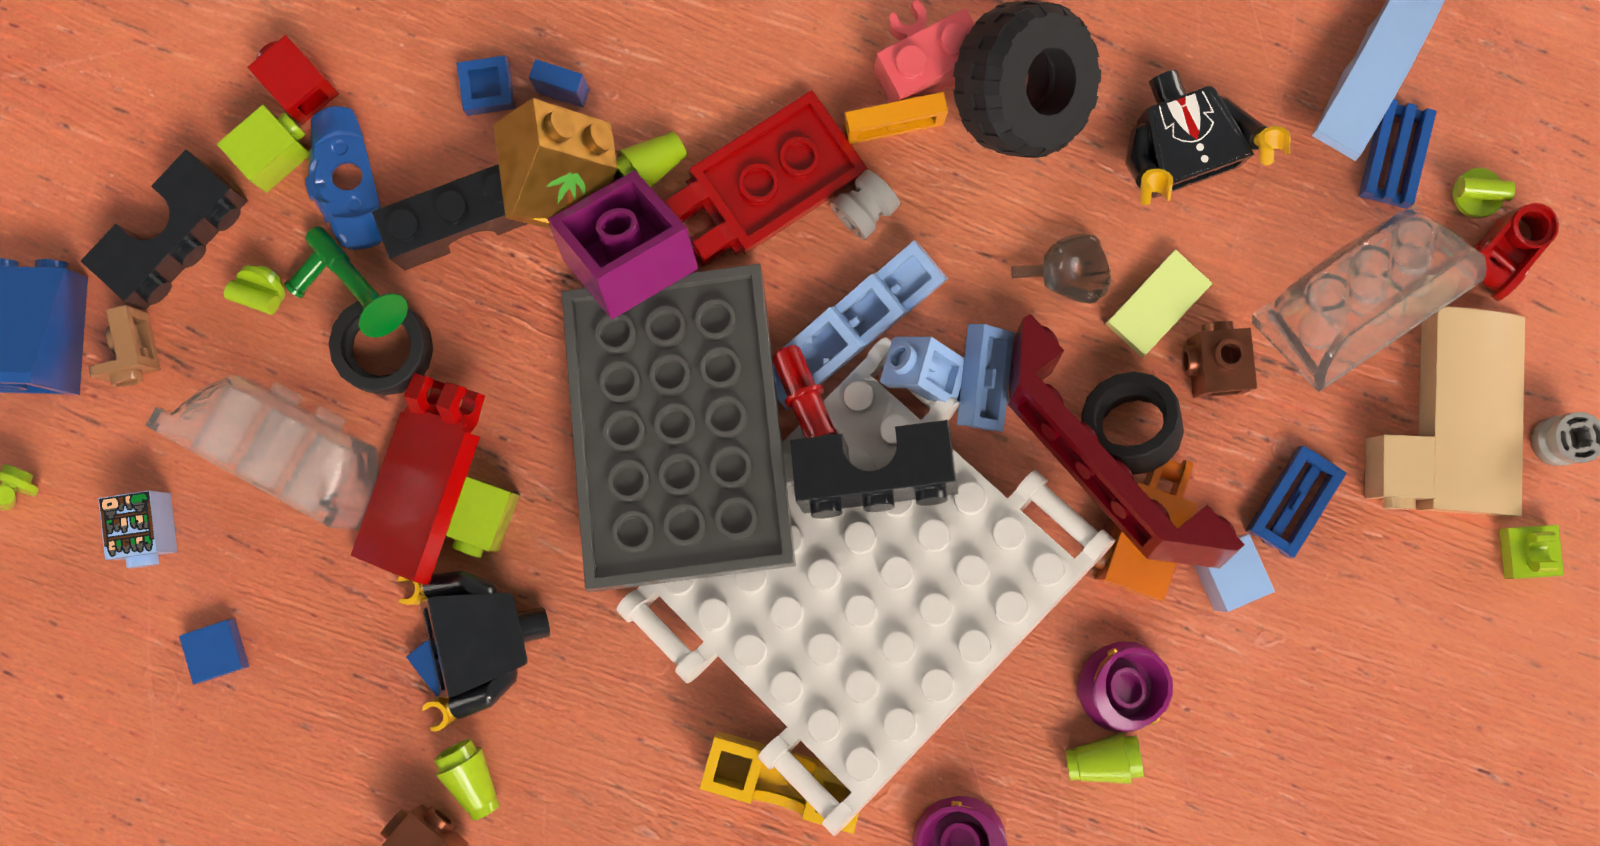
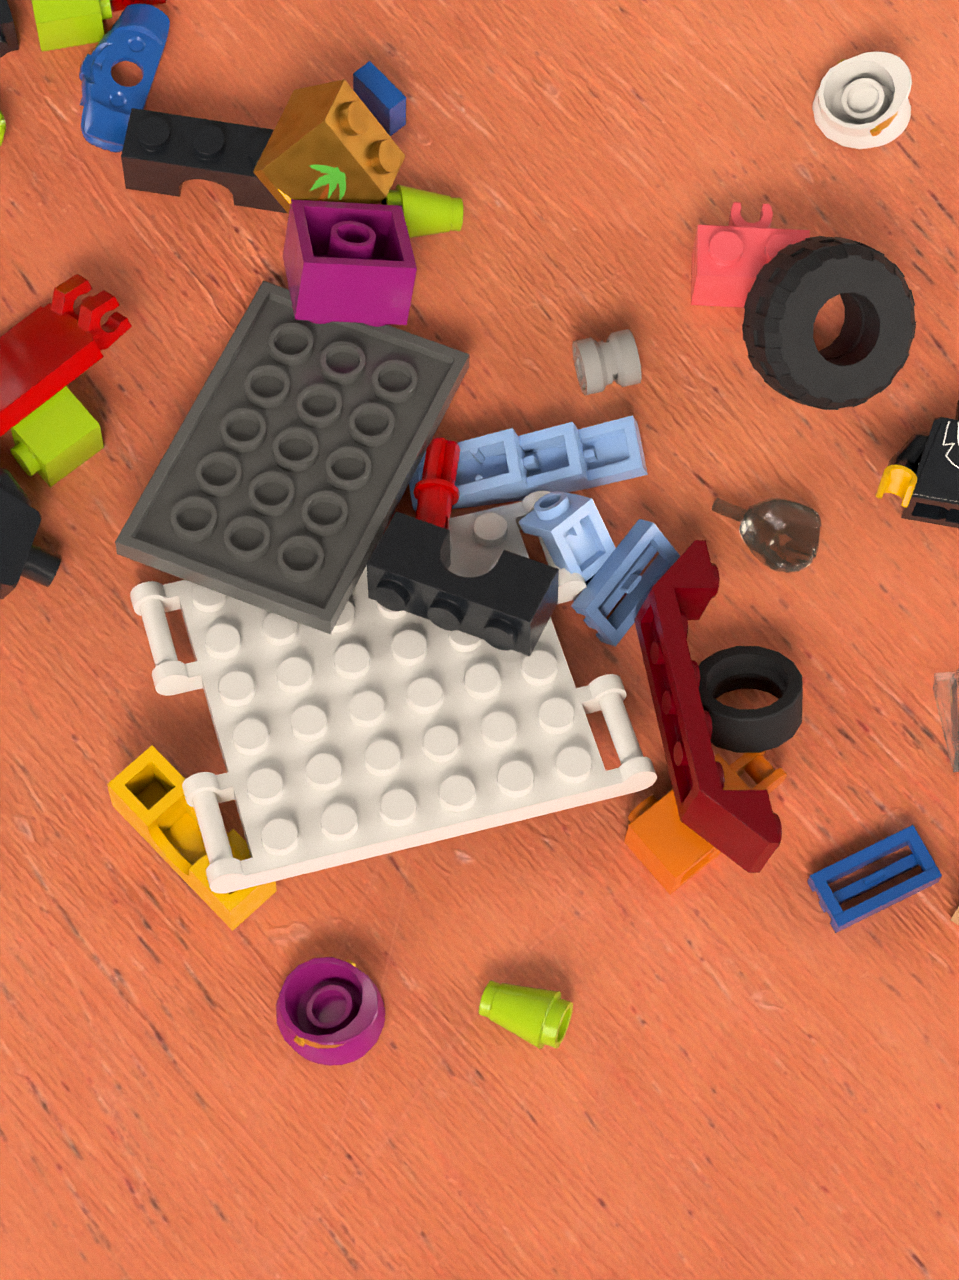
camera: 25 degrees right, 15 degrees down
(342, 356) = (58, 199): black tyre -> none
(380, 312) = (82, 198): green piece -> none
(486, 85) = (307, 63): blue tile -> none
(768, 178) = (523, 290): red tile -> none
(895, 118) = (684, 300): light orange tile -> none
(1125, 687) = (590, 957): magenta piece -> none
(1158, 303) = (845, 614): yellowish green tile -> none
(1220, 360) = (872, 696): copper brick -> none
(1238, 581) = (765, 904): light blue brick -> none

